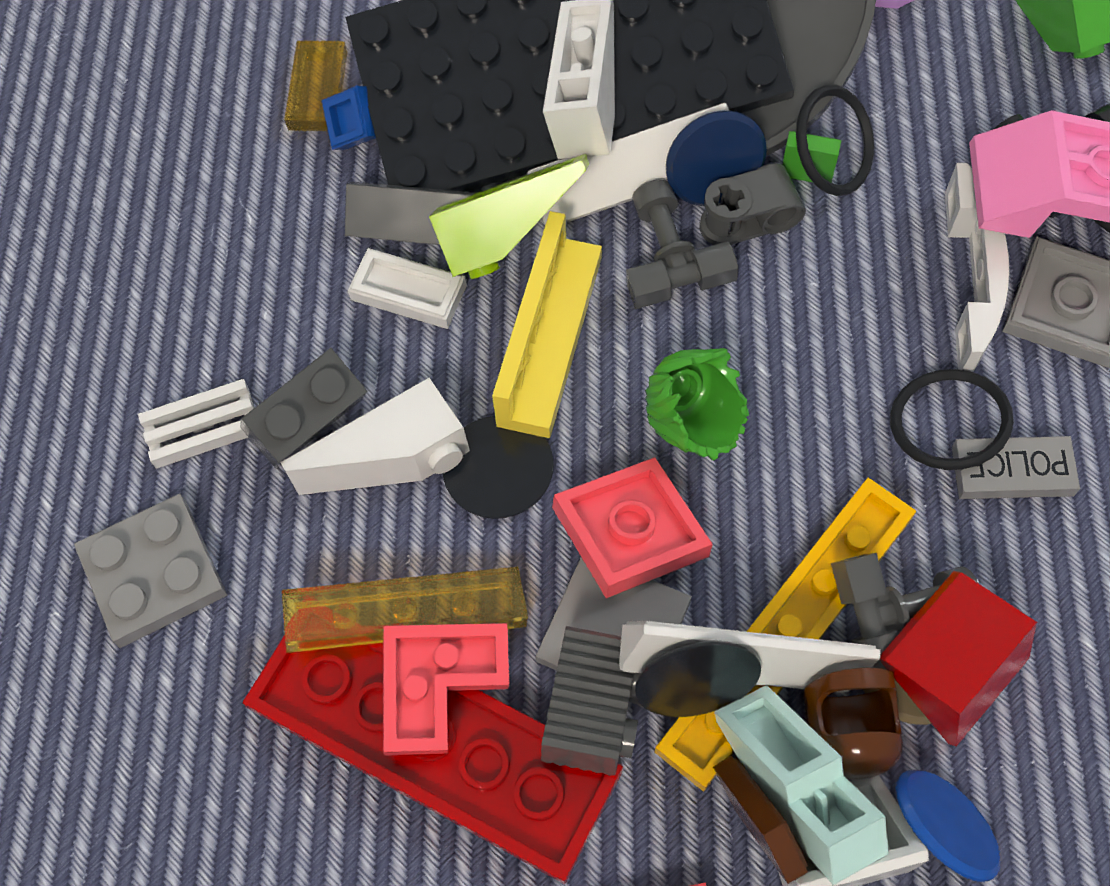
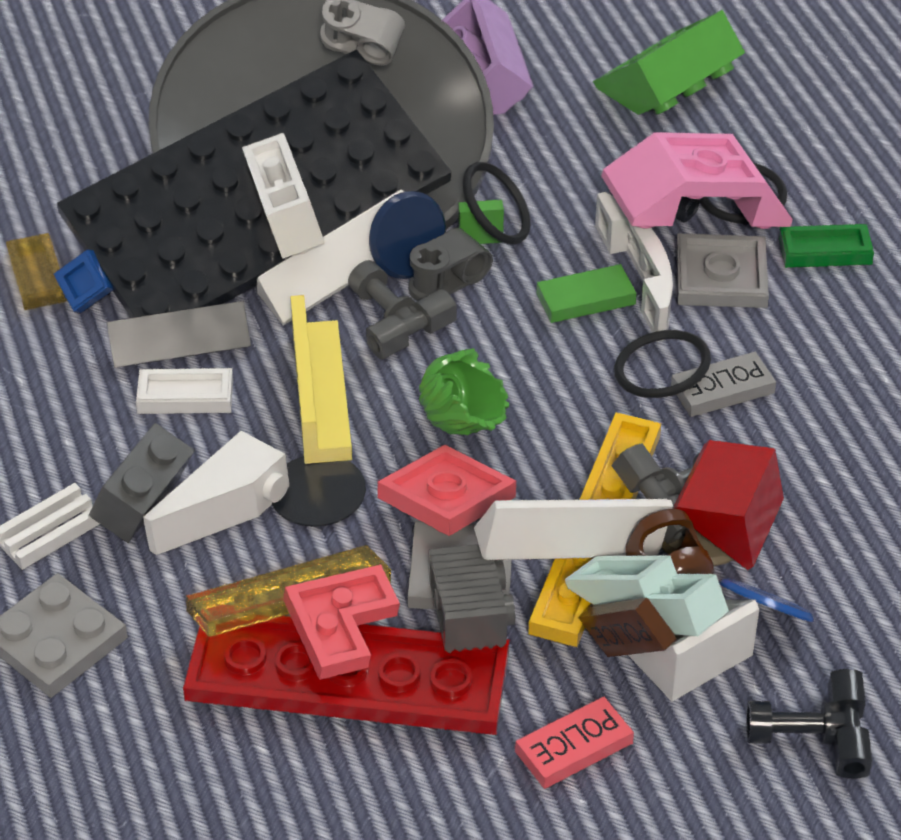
camera: 25 degrees left, 20 degrees down
(492, 222) = (247, 315): slope -> none
(697, 678) = (545, 549): black piece -> none
(898, 288) = (586, 293): none -> bright green tile

